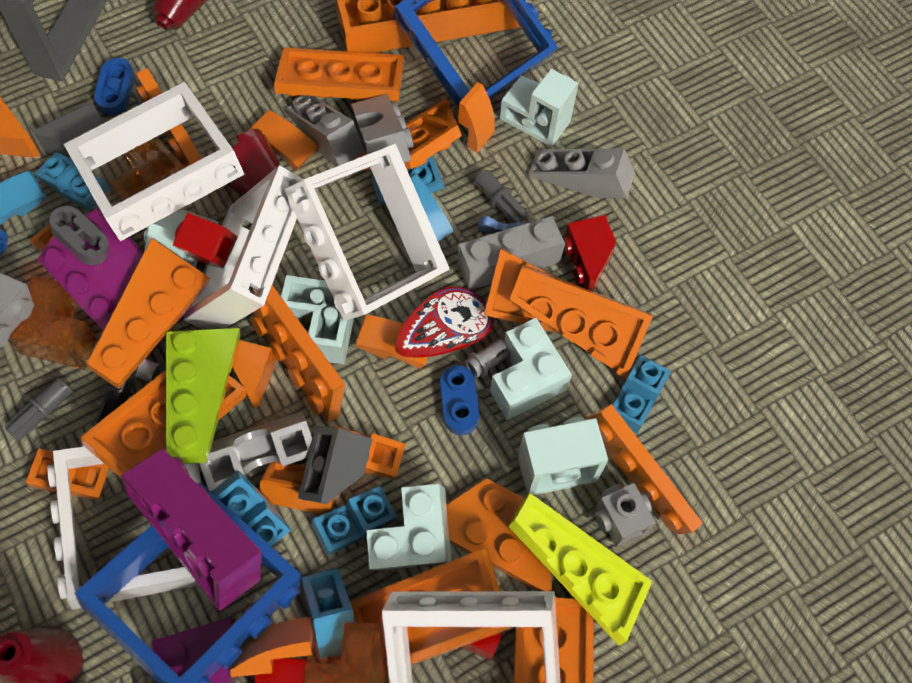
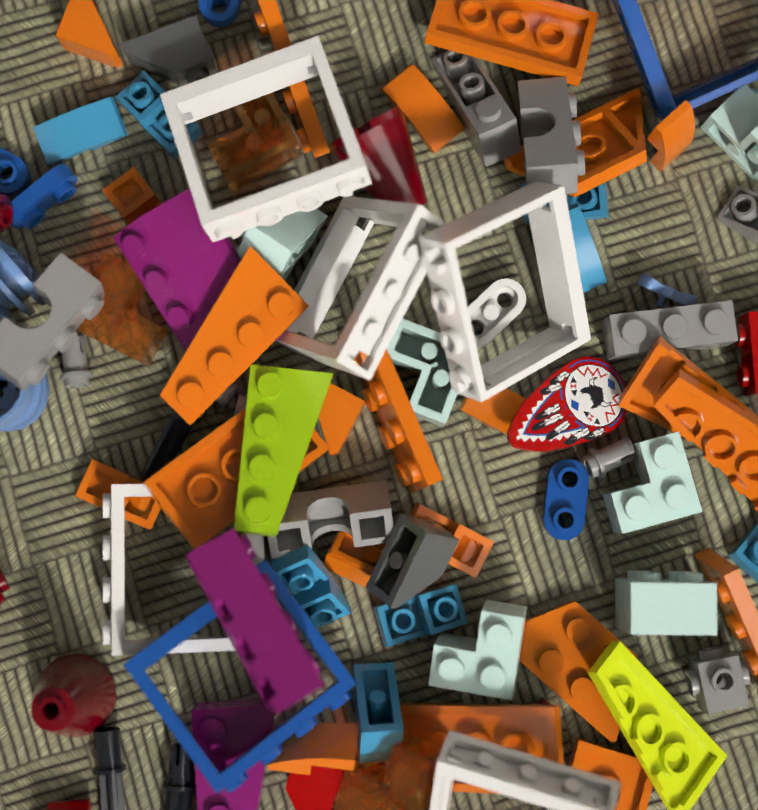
camera: 15 degrees right, 20 degrees up
(18, 380) = (76, 365): none -> light grey pin
(38, 409) = (95, 410): dark grey axle -> none
(84, 230) = (175, 221): dark grey beam -> none
(204, 240) = (313, 269): red slope -> none
(367, 272) = (493, 316): none -> white plate
(500, 197) = (675, 248): dark grey axle -> none

